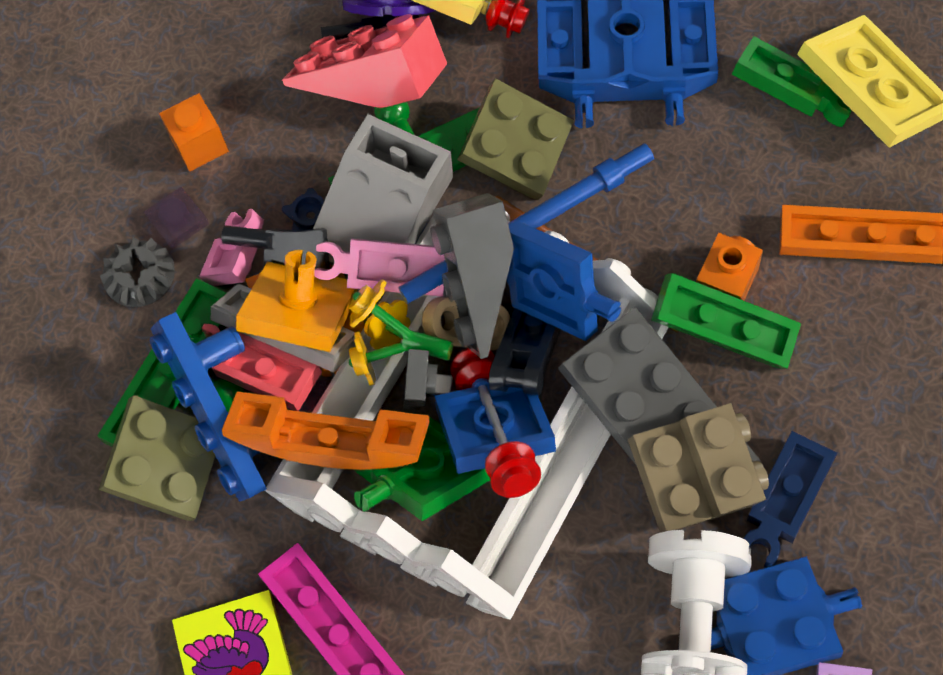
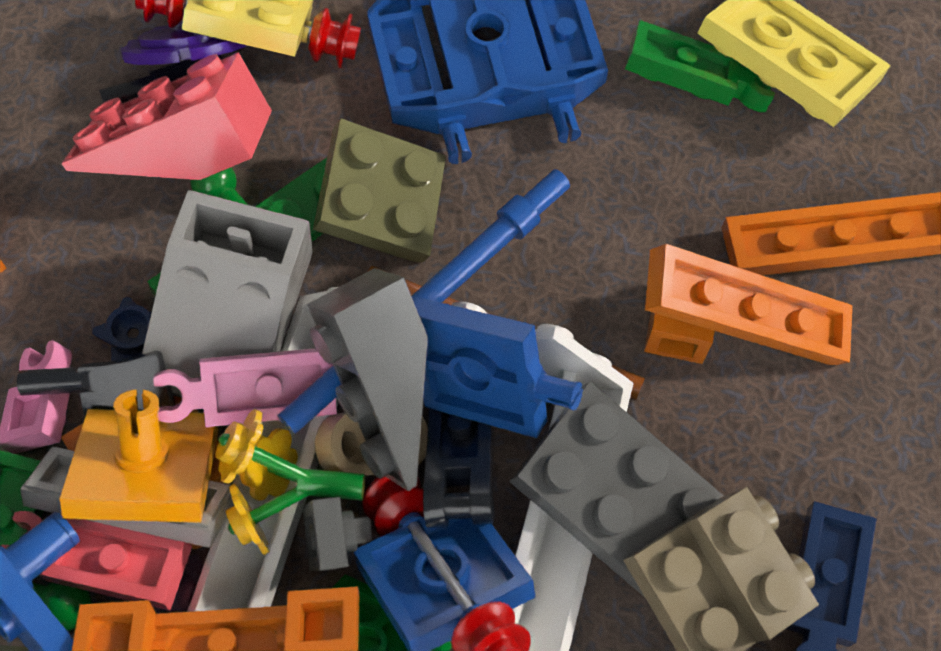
camera: 25 degrees left, 0 degrees up
(726, 321) = (699, 376): green plate -> none
(776, 274) = (747, 305): none -> orange plate

